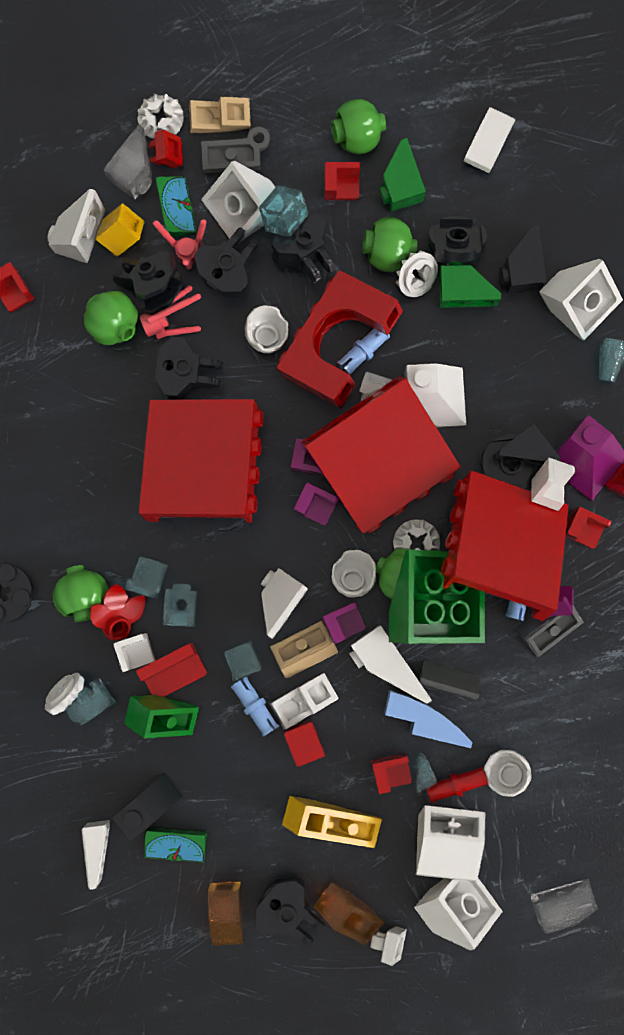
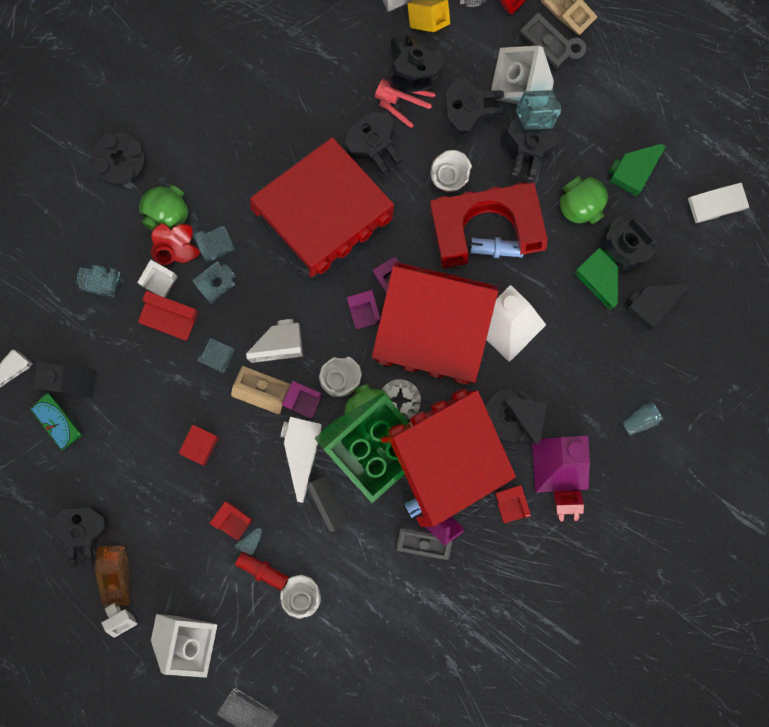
camera: 45 degrees right, 0 degrees up
(64, 693) = (89, 257): white gear -> none
(110, 317) = (363, 61): bright green plant -> none
(160, 716) = (131, 335): green slope -> none
(176, 206) = (479, 35): slope -> none
(185, 247) = (456, 67): coral plant -> none
(225, 913) = (41, 494): clear orange slope -> none
(254, 706) = (193, 391): light blue pin -> none
(304, 701) = (226, 420): white slope -> none
(330, 822) = (162, 510): yellow slope -> none
(342, 180) = (598, 129): red panel -> none
(358, 126) = (645, 106): bright green plant -> none
(371, 383) = (479, 273): white tile -> none
(424, 719) = (287, 512): light blue slope -> none
(427, 269) = (590, 241): white gear -> none
(450, 843) = (219, 599): white slope -> none
(549, 483) = (518, 451): white panel -> none
(582, 296) = (667, 361): white slope -> none

